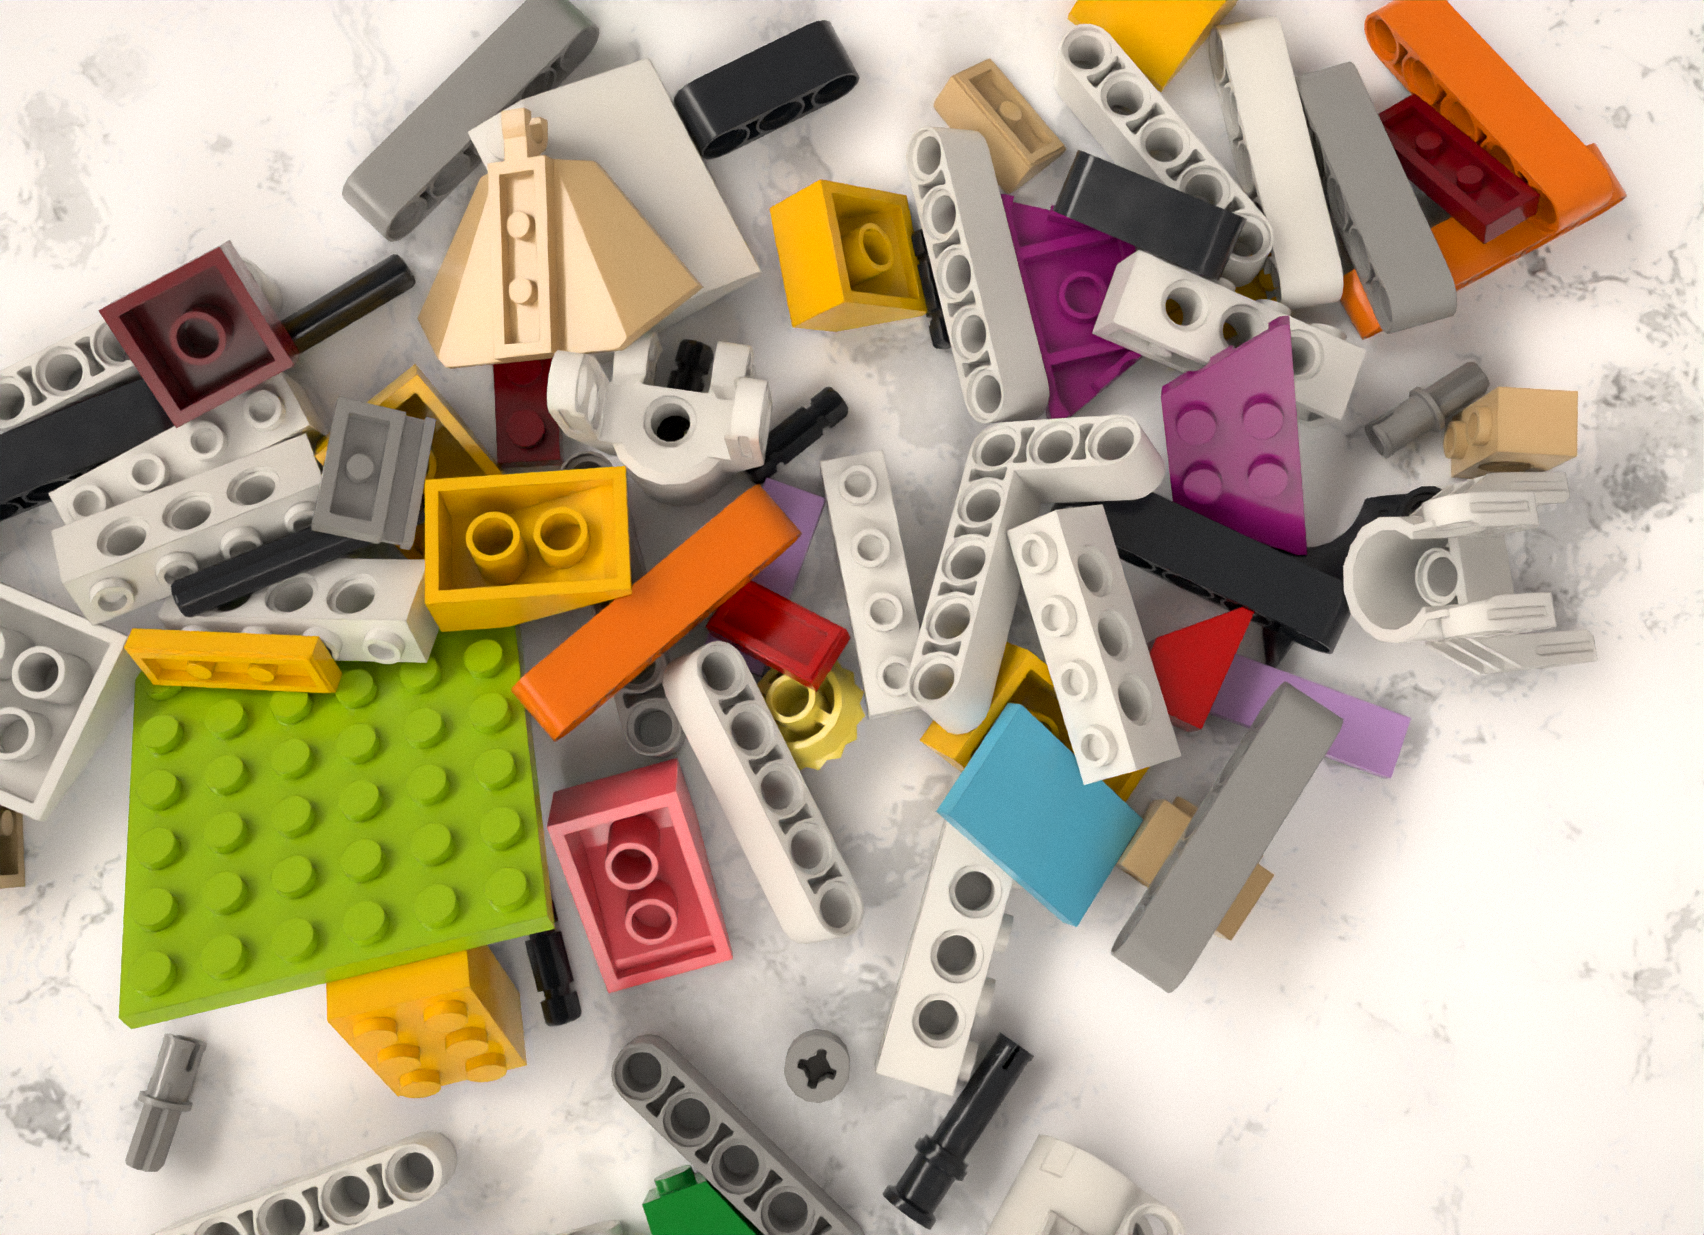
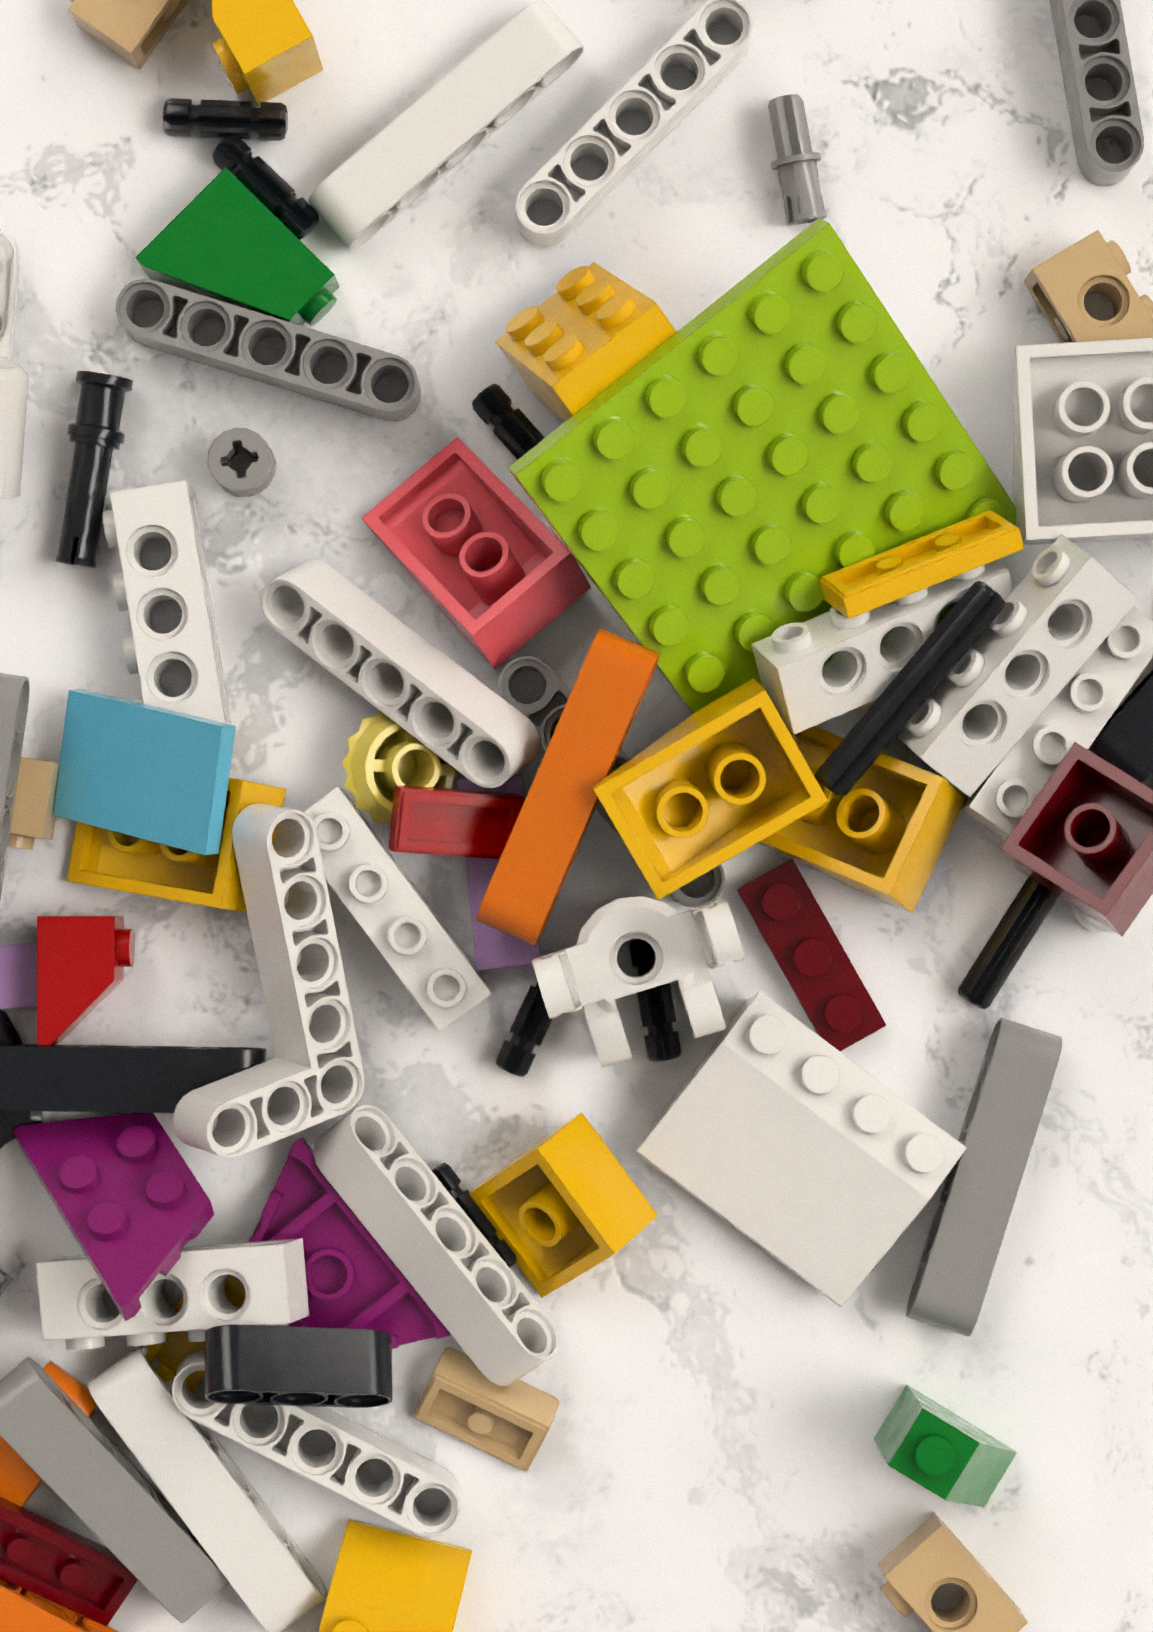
camera: 160 degrees right, 5 degrees up
(373, 474) = (876, 785): light grey plate -> none
(548, 262) = (824, 1051): tan panel -> none
(766, 89) = (719, 1333): black beam -> none
(1093, 643) = (167, 943): white brick -> none

